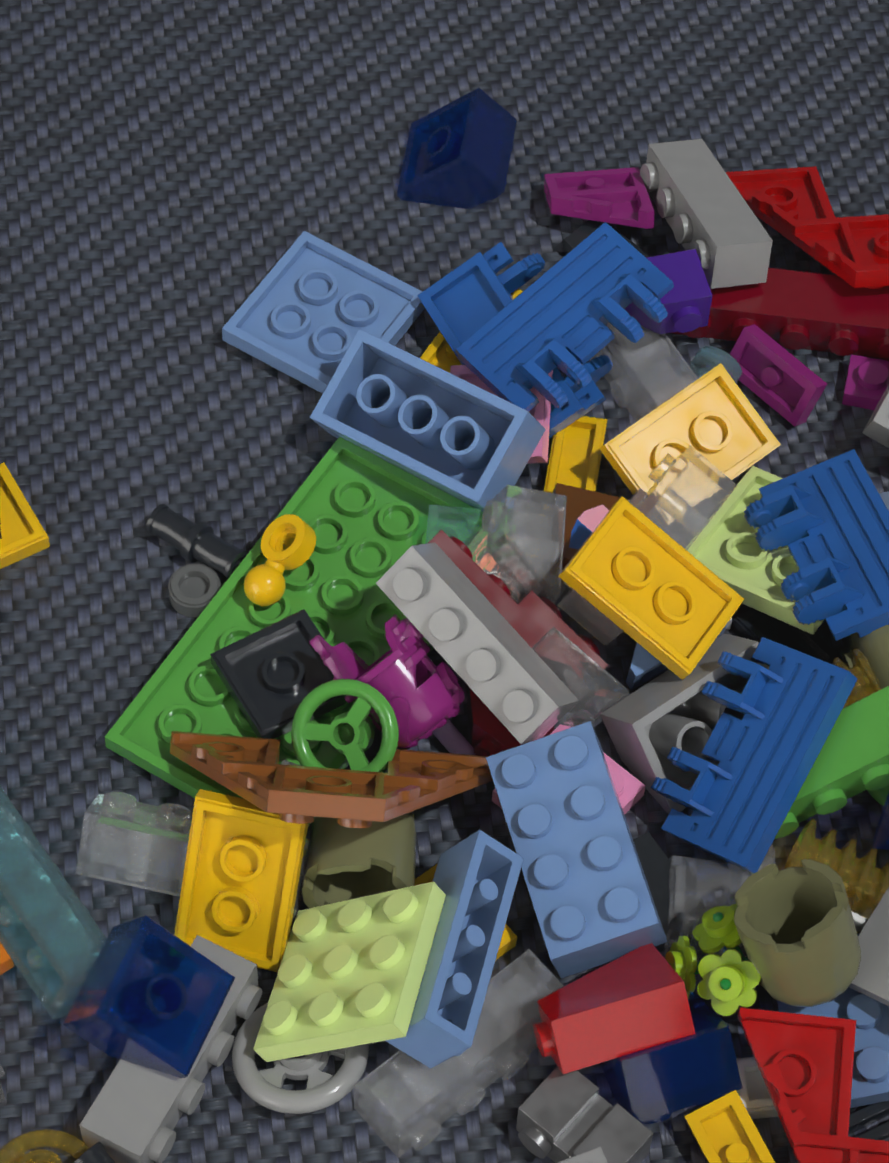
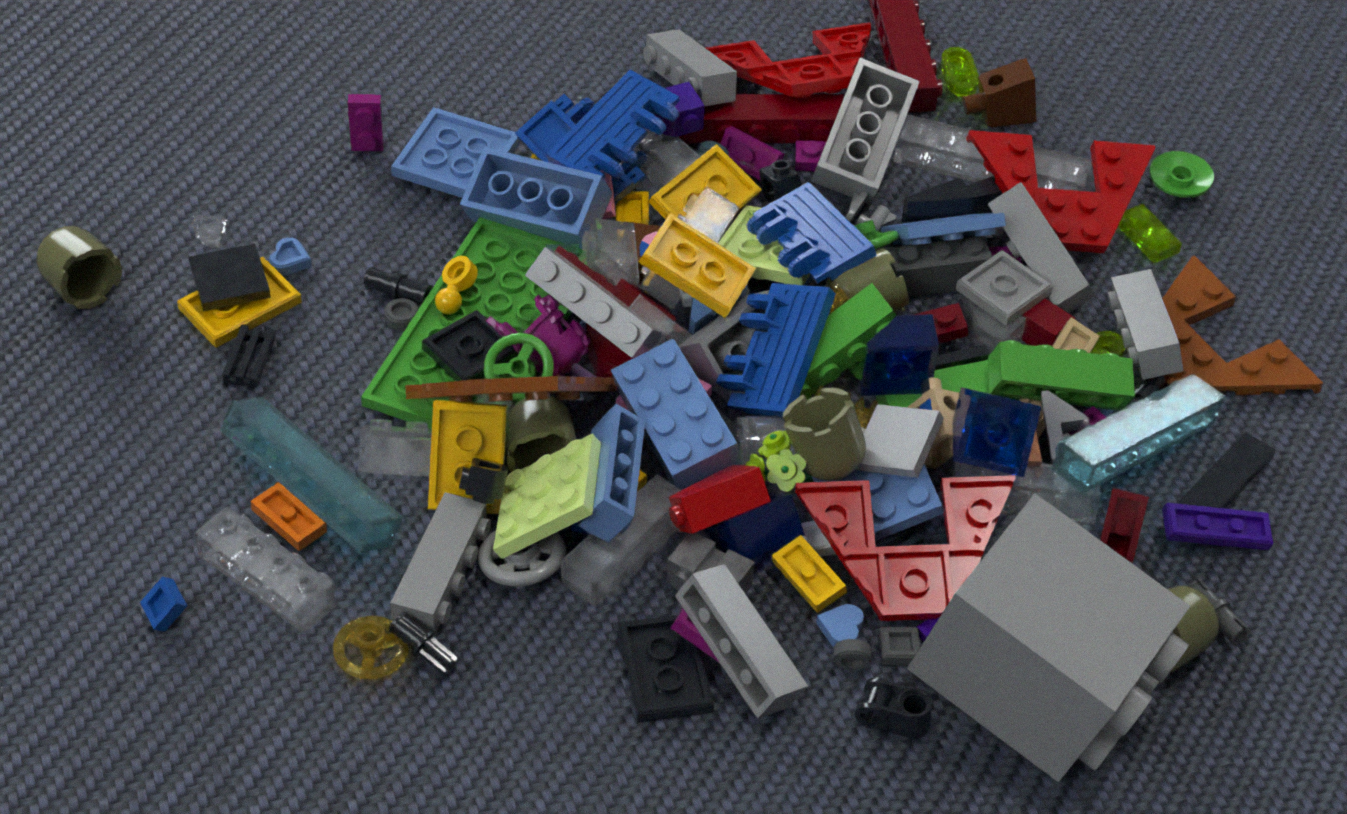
camera: 10 degrees left, 10 degrees down
(44, 466) = (289, 257): none -> medium blue tile
(149, 998) = (422, 523): clear blue slope -> none
(194, 251) = (365, 122): none -> magenta plate
(258, 928) = (484, 480): none -> black plate
(458, 153) = (524, 55): clear blue slope -> none
(601, 196) = (614, 68): magenta wing -> none
(812, 429) = (778, 180): none -> black plate

